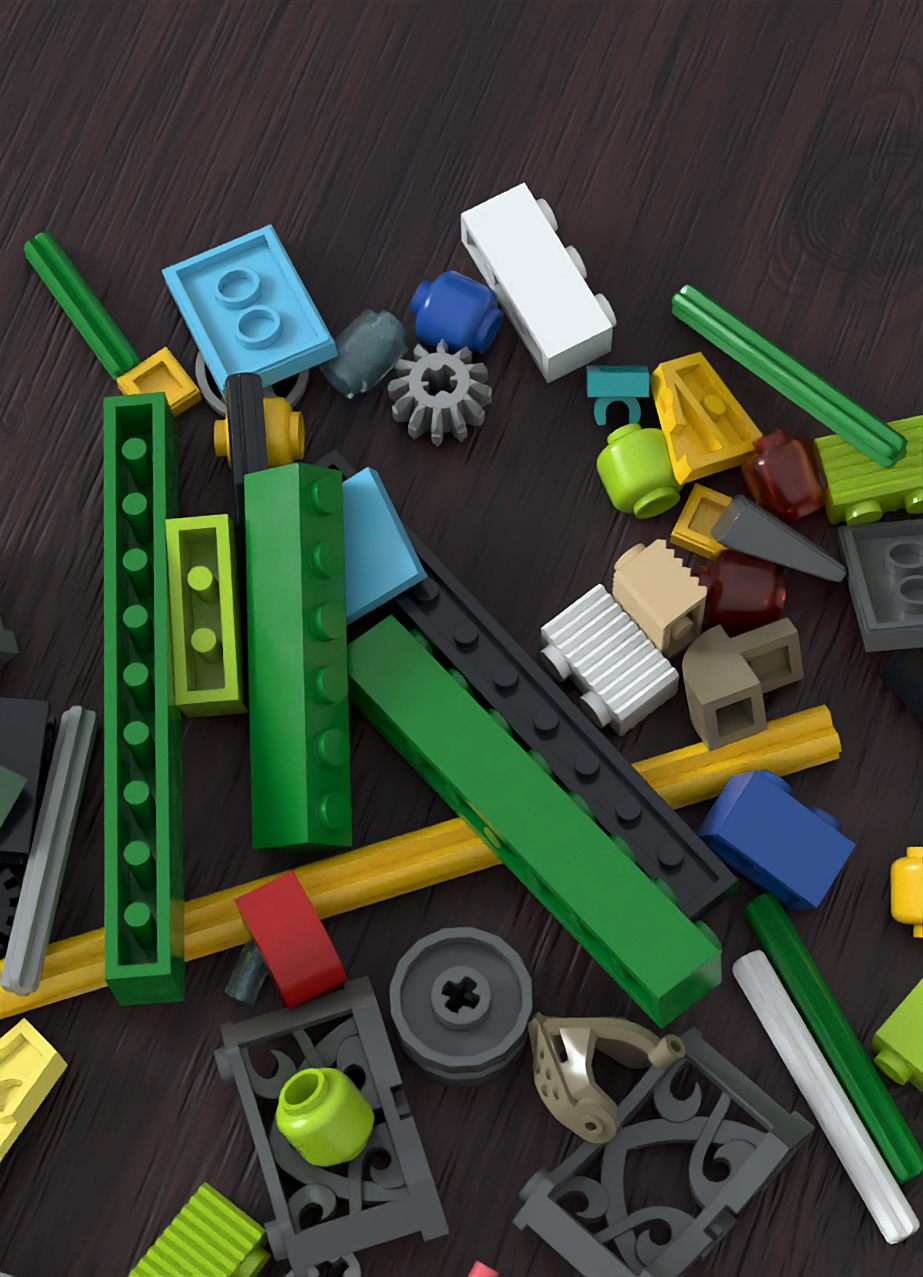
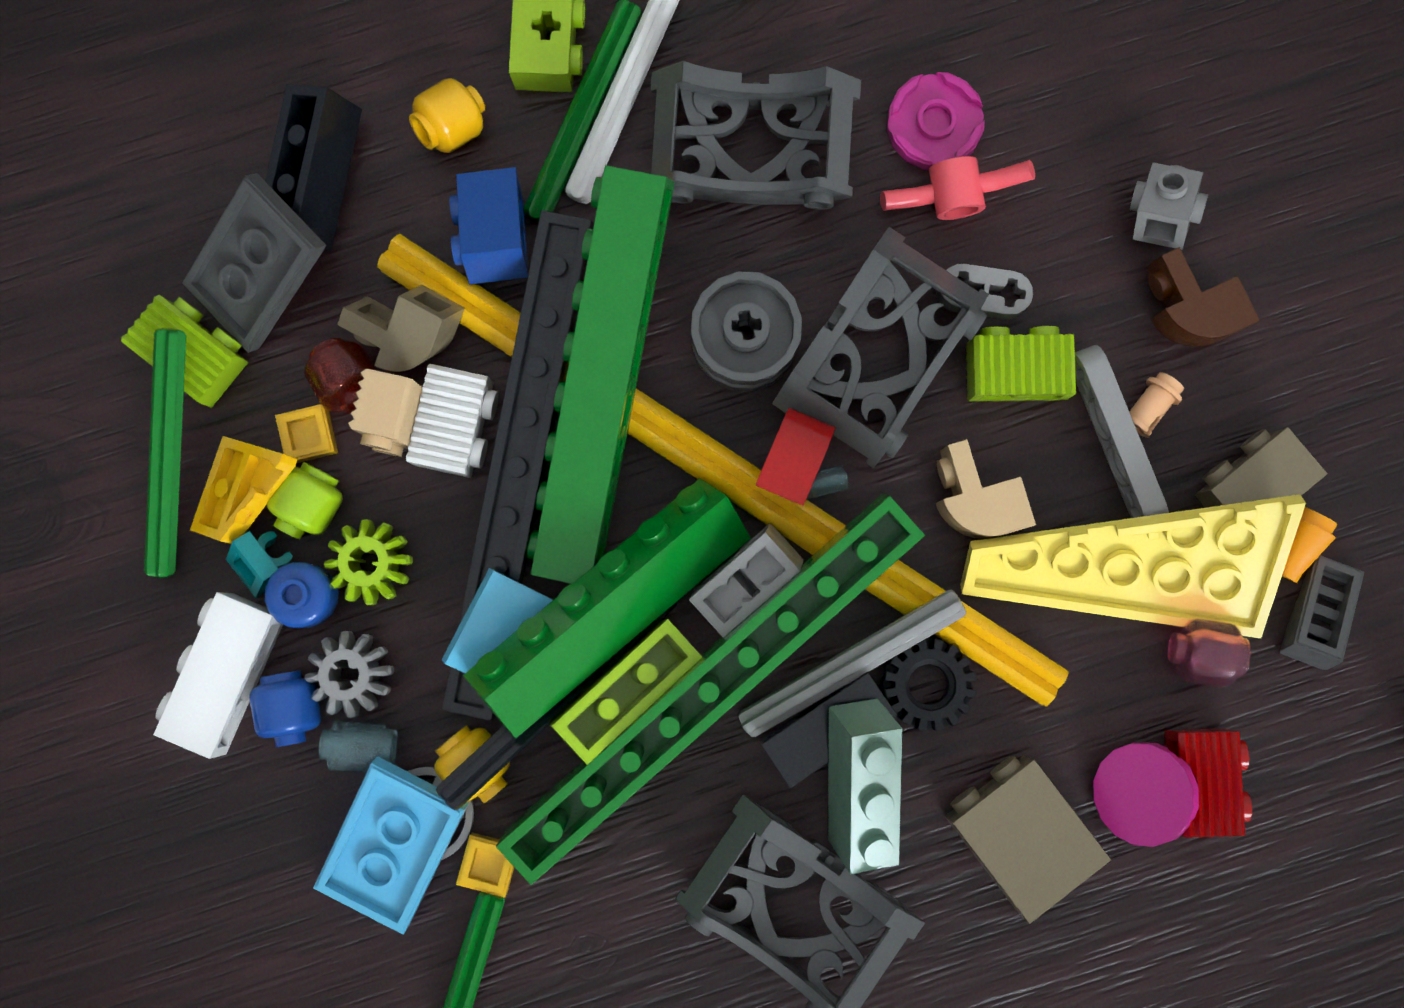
camera: 130 degrees left, 15 degrees up
(89, 1100) = (980, 510): none -> tan brick
(214, 810) = (746, 580): none -> light grey brick
(324, 1116) = (884, 350): lime head -> none
(509, 479) = (349, 560): none -> lime gear
(549, 401) = (301, 595): none -> blue head
(570, 1086) = (749, 215): dark tan helmet -> none
(760, 534) = (293, 387): dark grey slope -> none
(786, 474) = (237, 405): clear red head -> none

